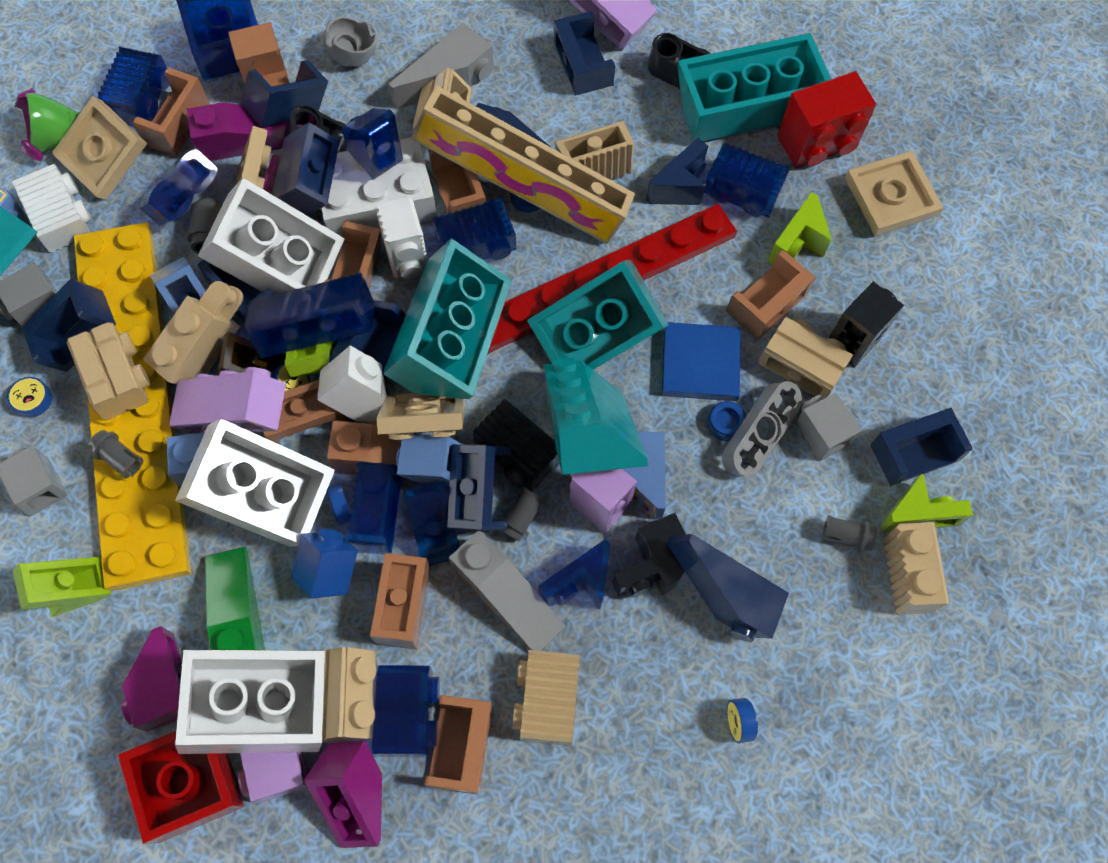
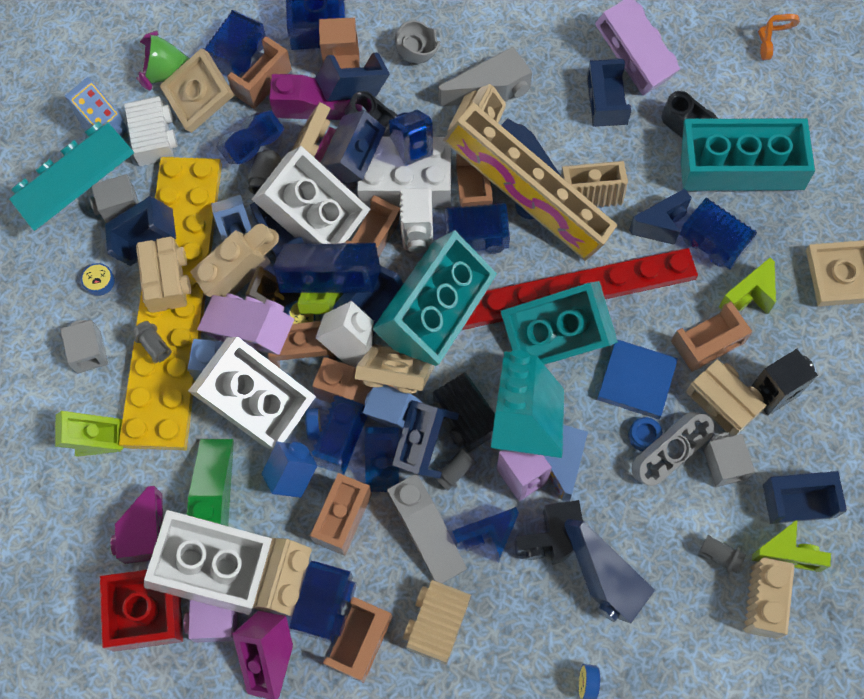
camera: 20 degrees right, 0 degrees up
(826, 119) = (800, 197): red brick -> none

